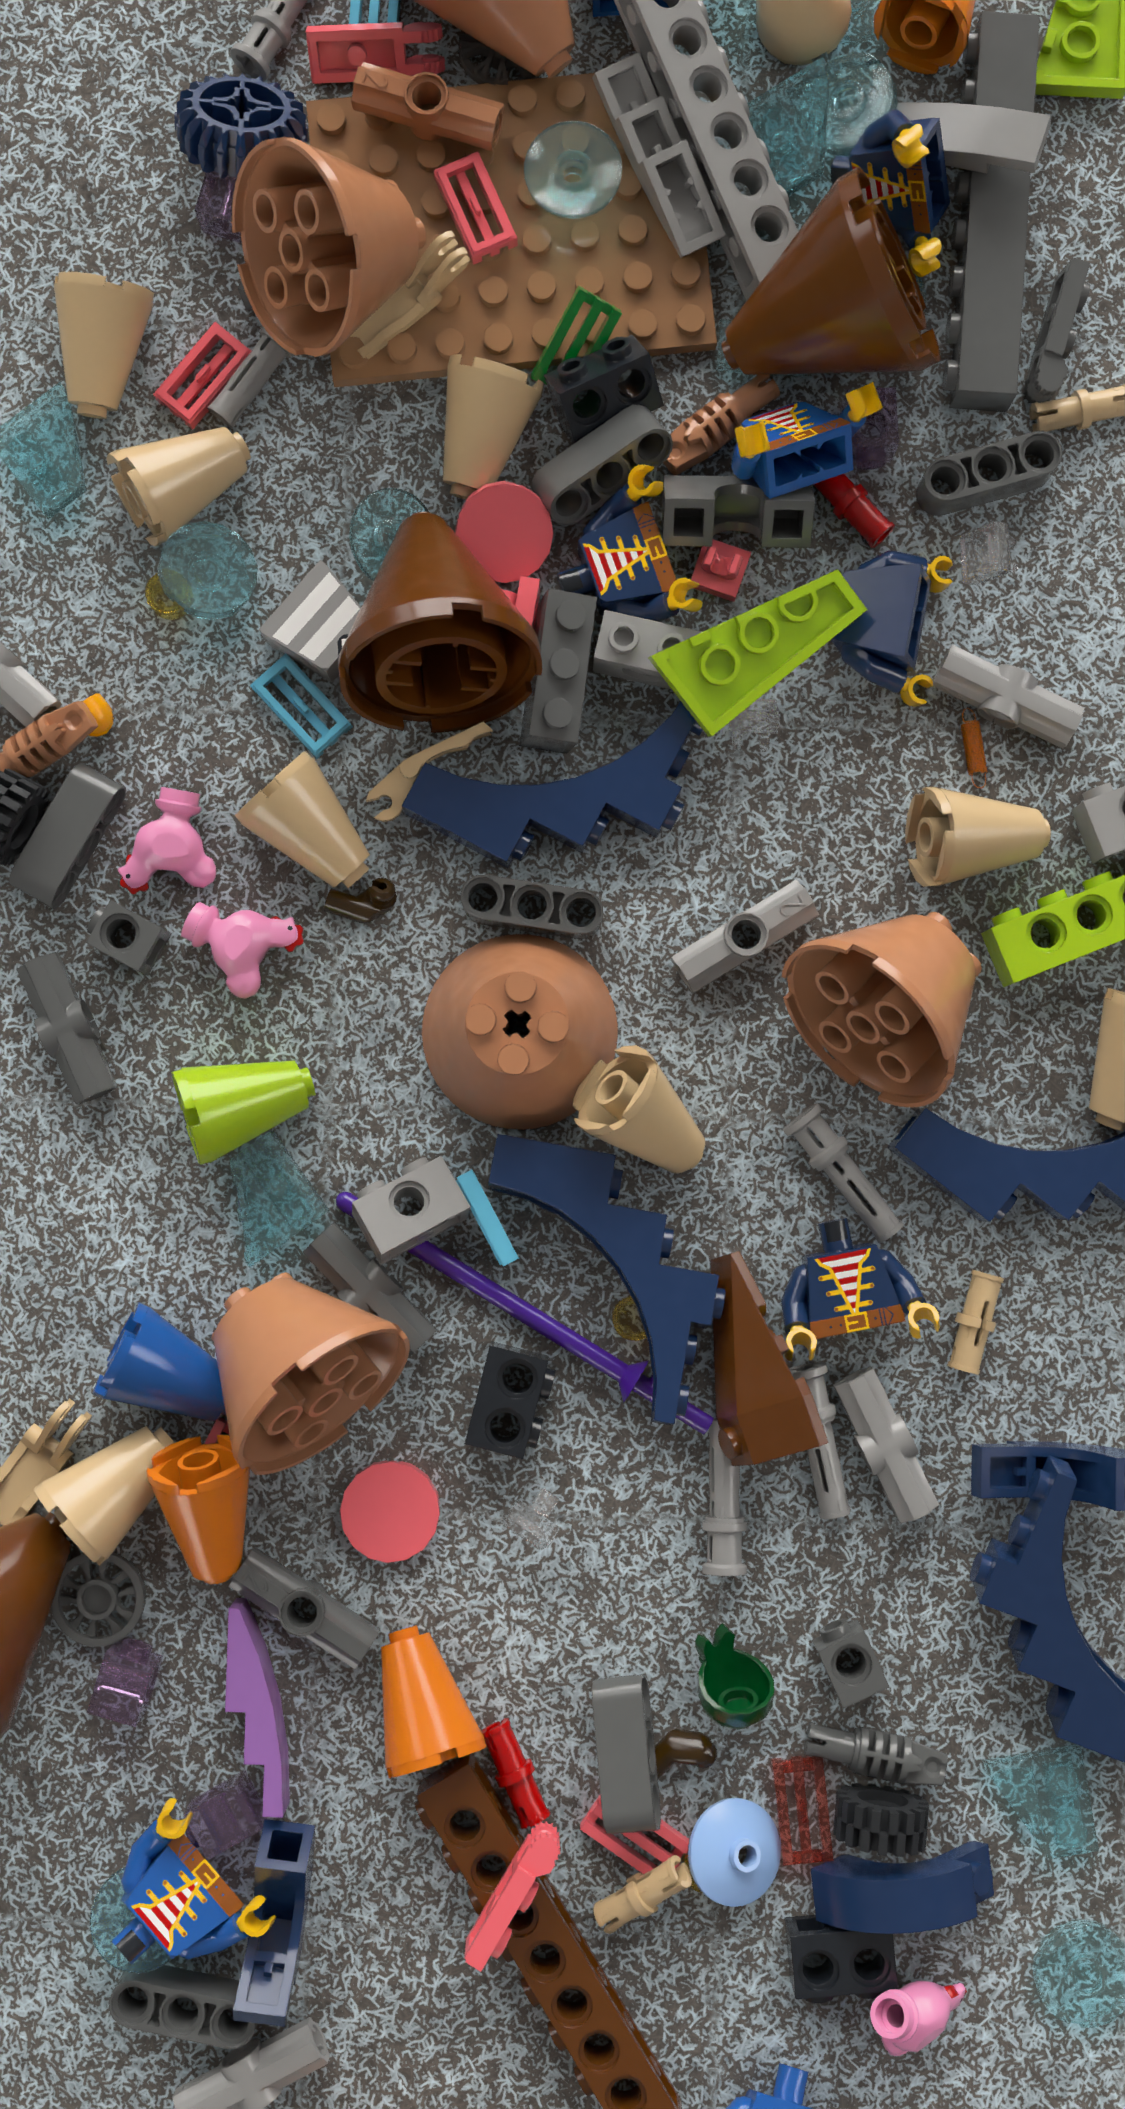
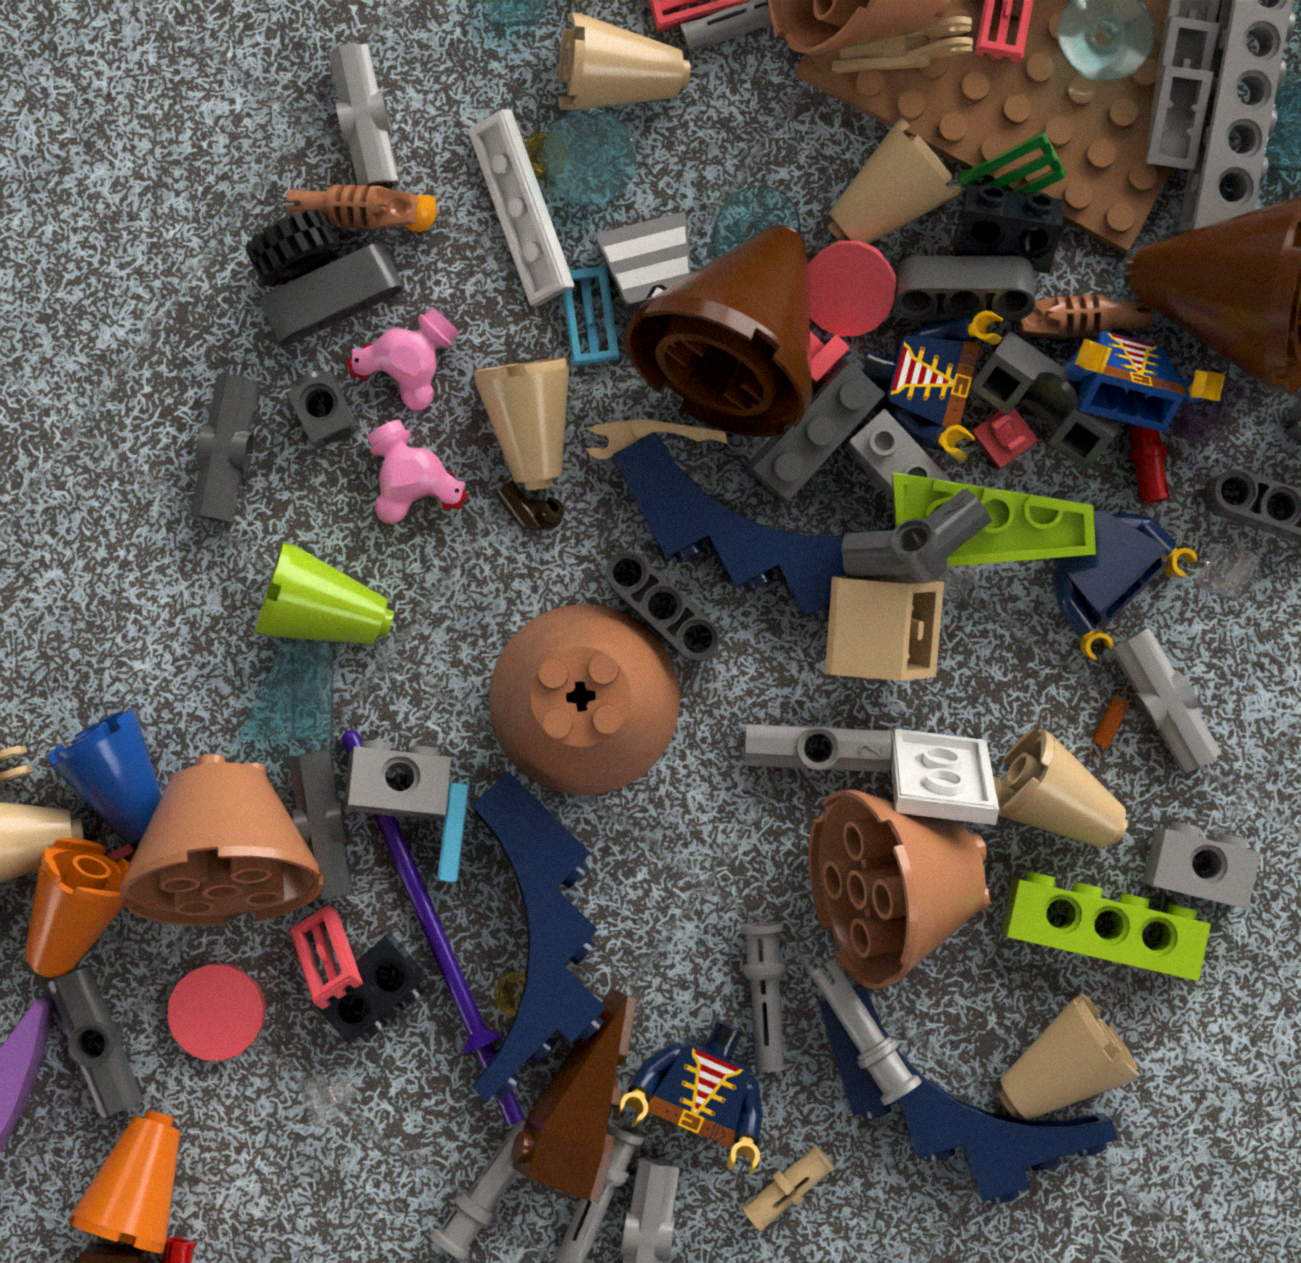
camera: 35 degrees right, 0 degrees up
(179, 653) = (520, 207): none -> white tile
(476, 1412) = (337, 982): none -> coral tile
(638, 1111) = (632, 831): tan cone -> none
(713, 701) = (916, 545): none -> dark grey piece
(731, 793) = (883, 627): none -> tan slope
(869, 884) = (943, 777): none -> white tile
(972, 1153) = (876, 1051): none -> light grey pin

